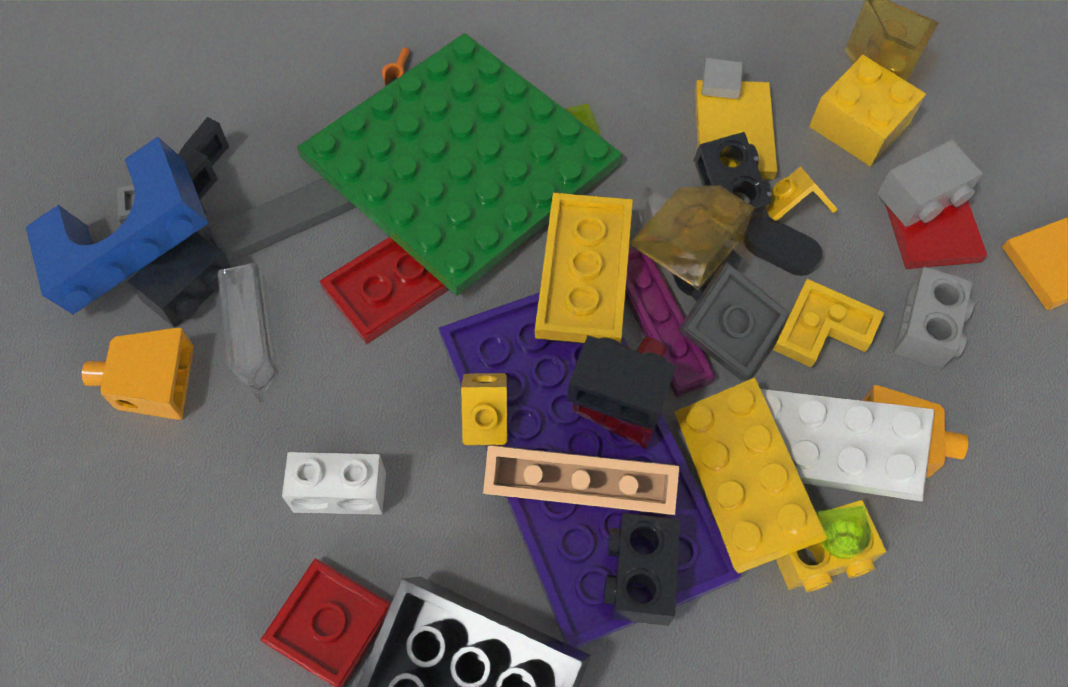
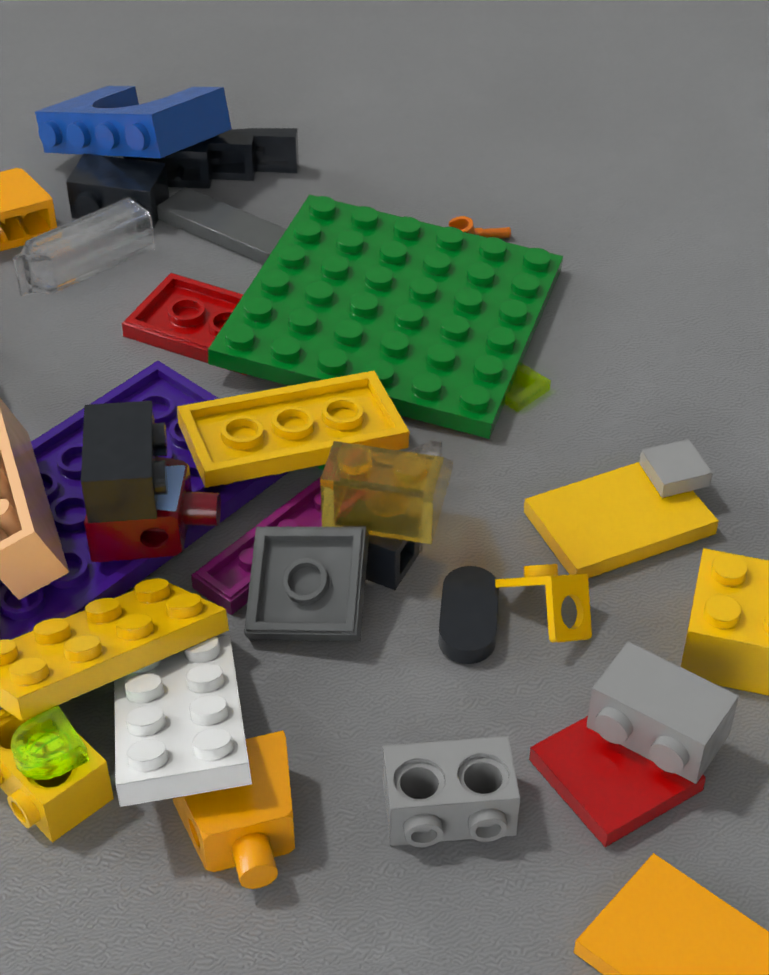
camera: 65 degrees right, 20 degrees down
(484, 409) = (62, 406): yellow bracket -> none
(743, 178) = (514, 517): black brick -> none
(821, 314) = (377, 669): yellow plate -> none

